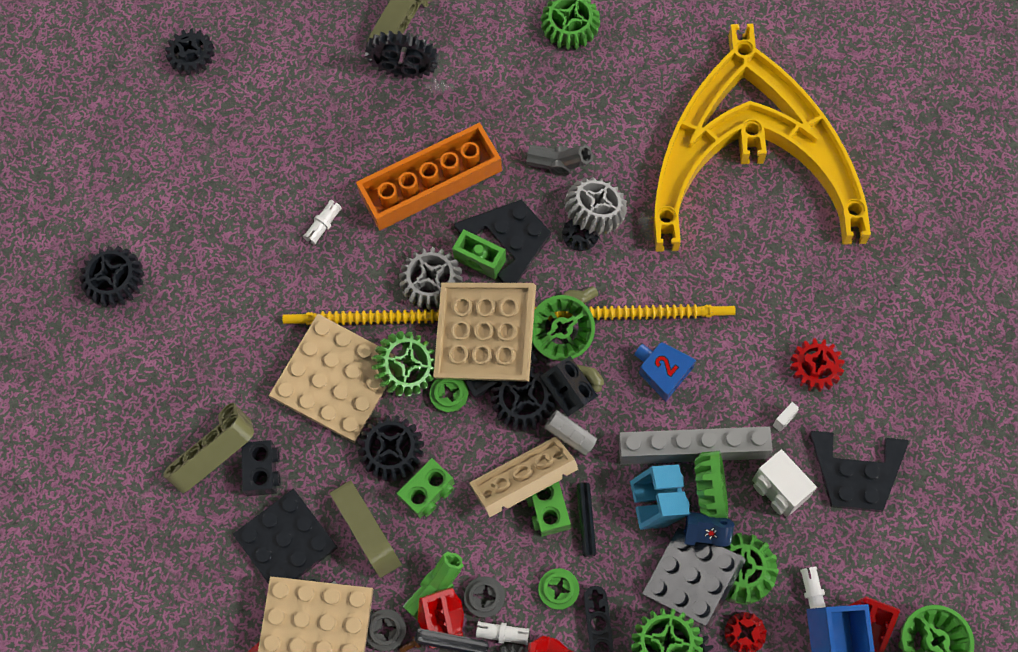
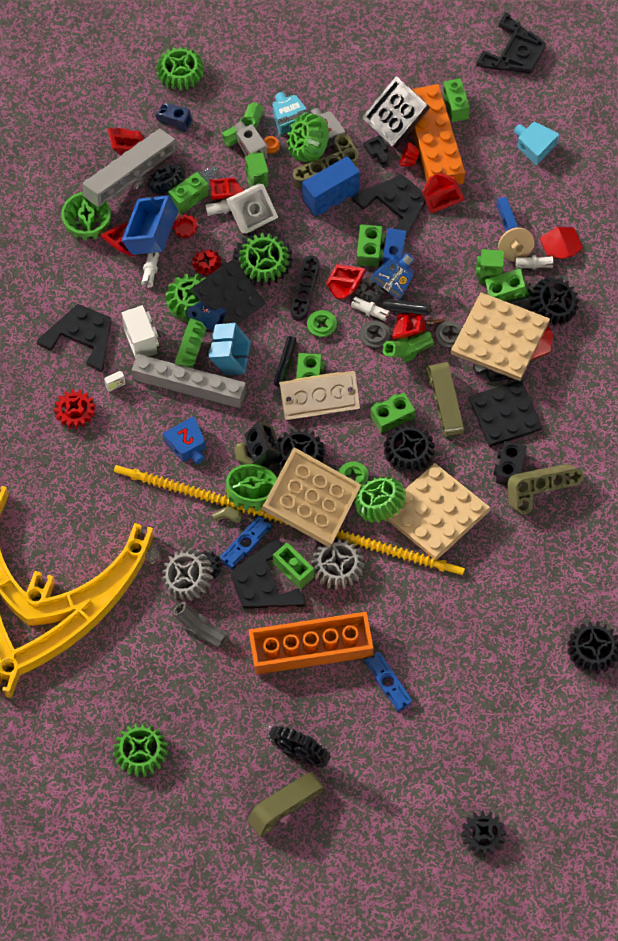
camera: 165 degrees left, 5 degrees down
(322, 164) = (382, 670): none -> blue piece
(322, 222) = (410, 640): white pin -> none
(553, 260) = (236, 551): none -> blue piece
(570, 433) = (274, 415): light grey axle -> none

